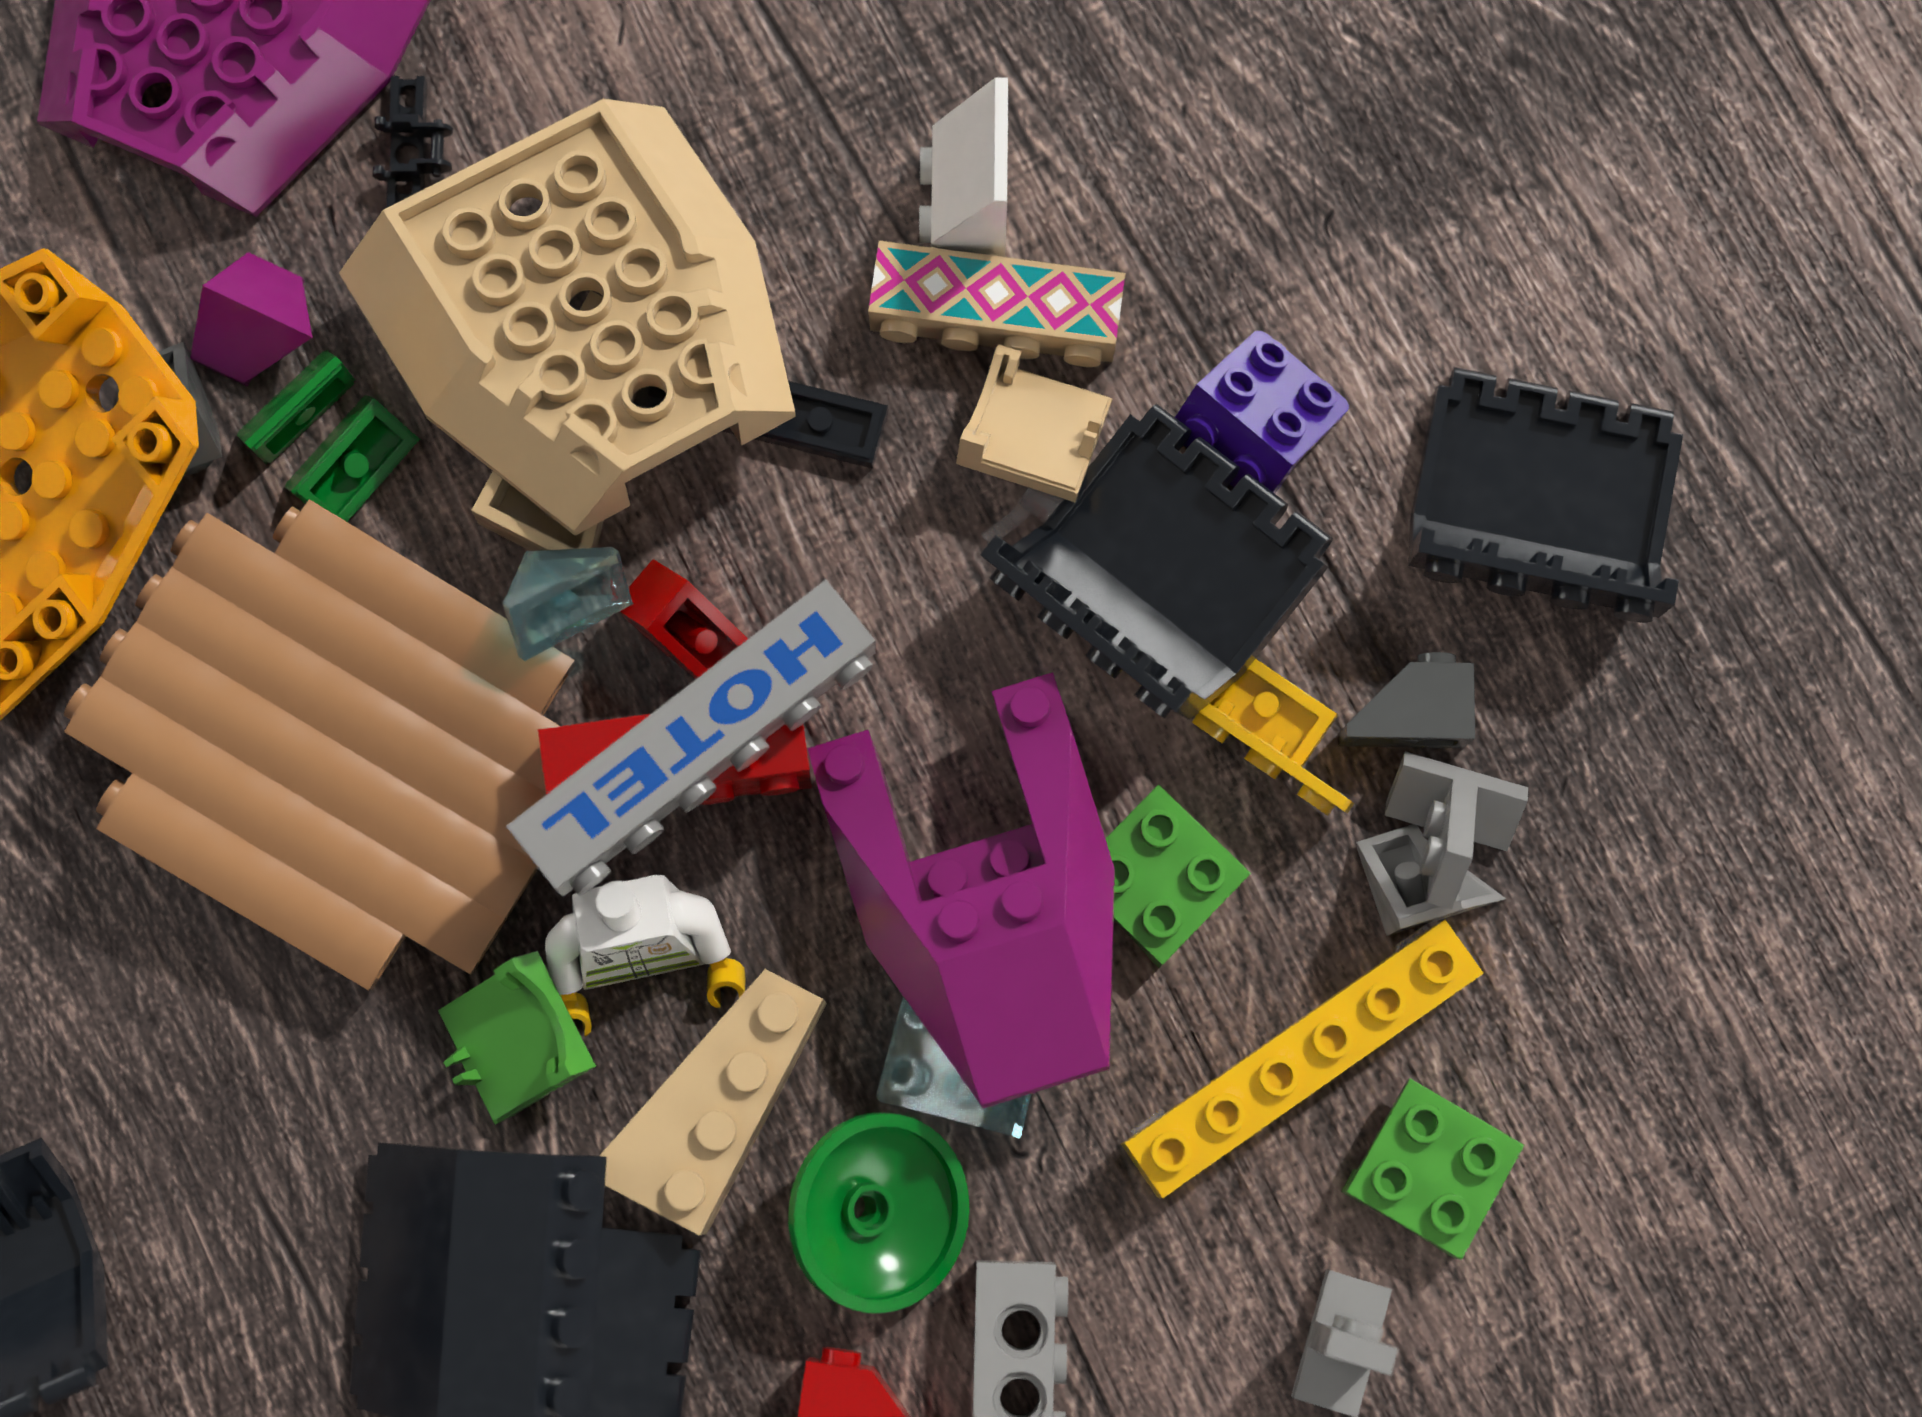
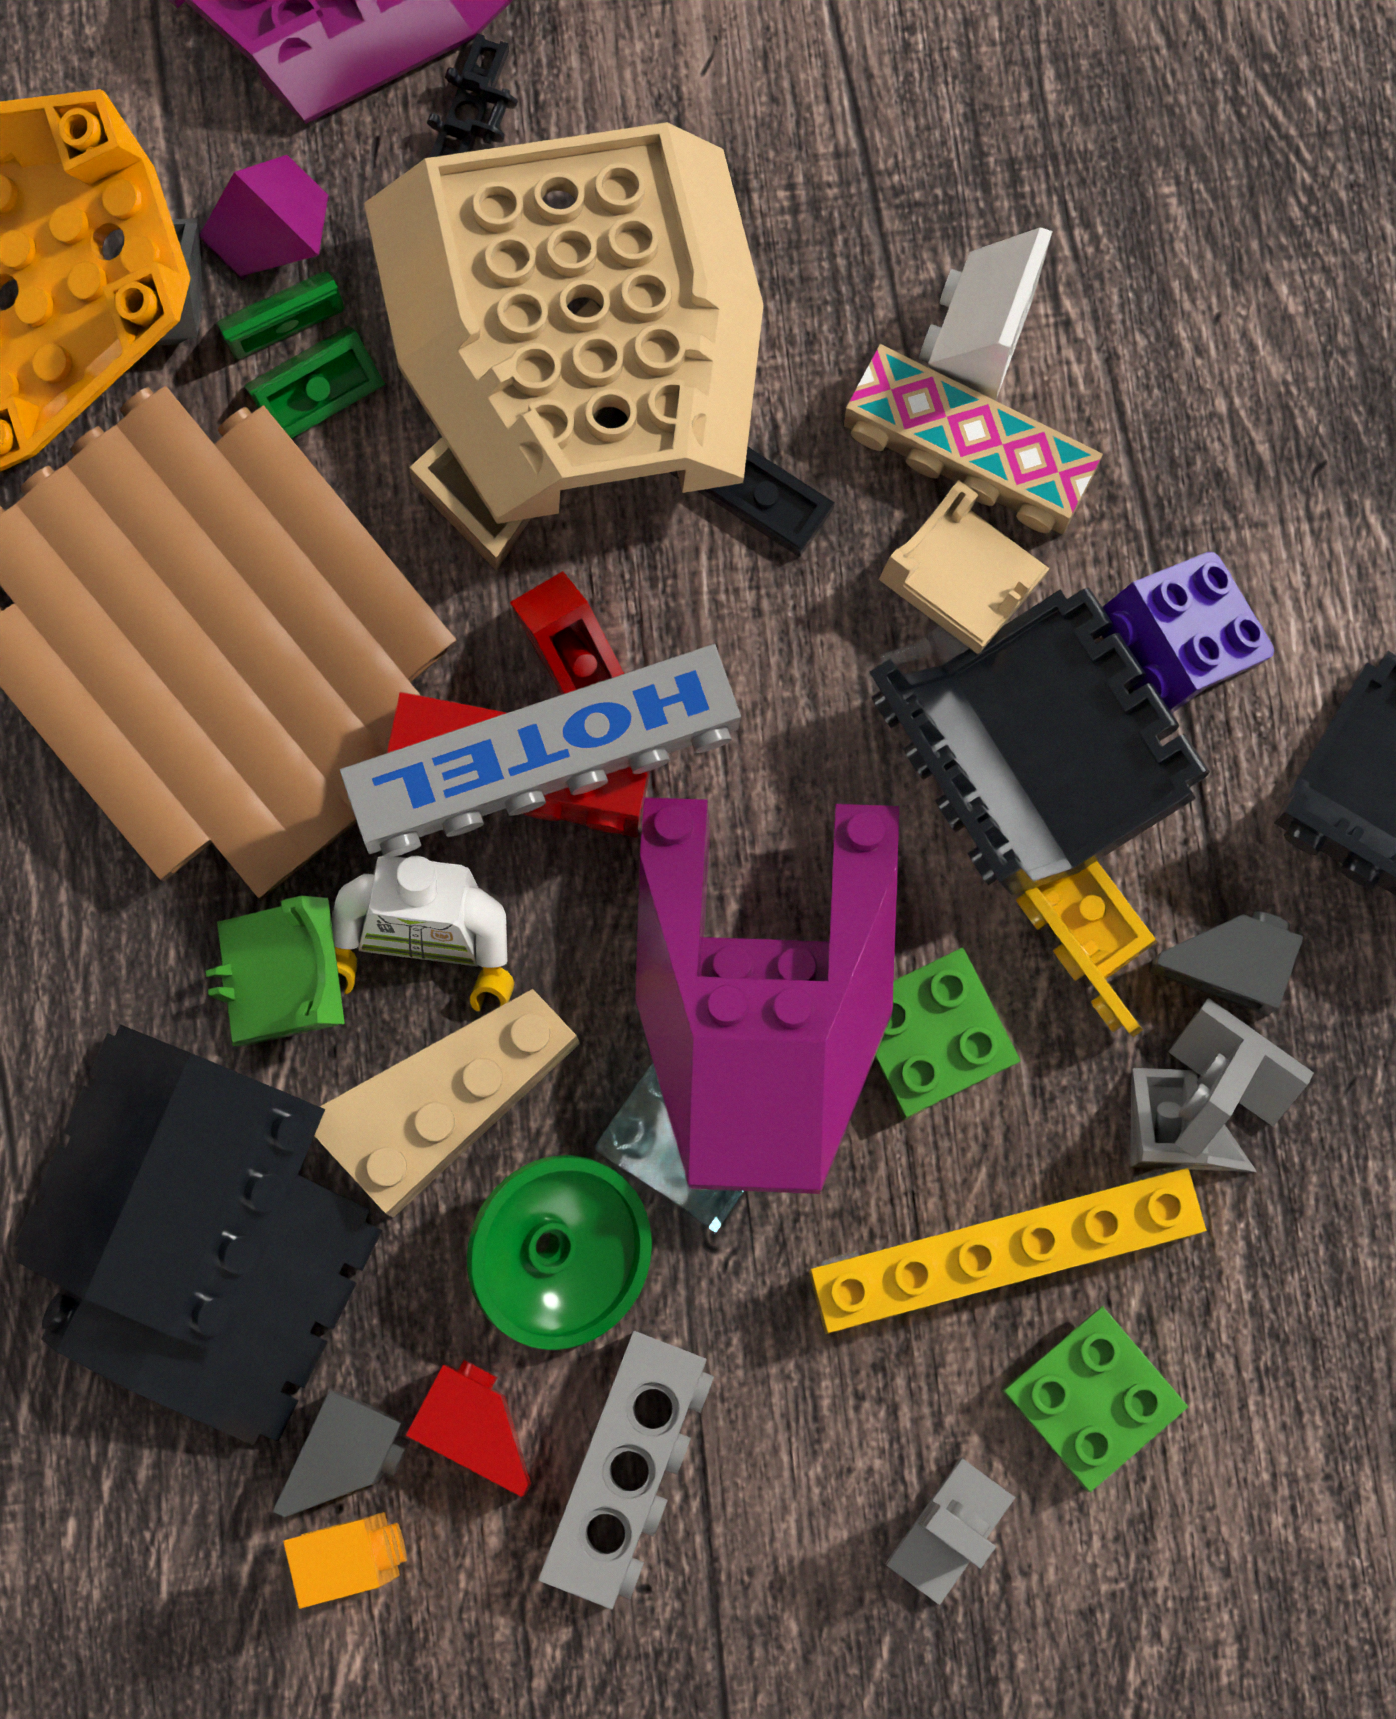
camera: 20 degrees right, 0 degrees up
(562, 595) = (466, 576): clear light blue slope -> none

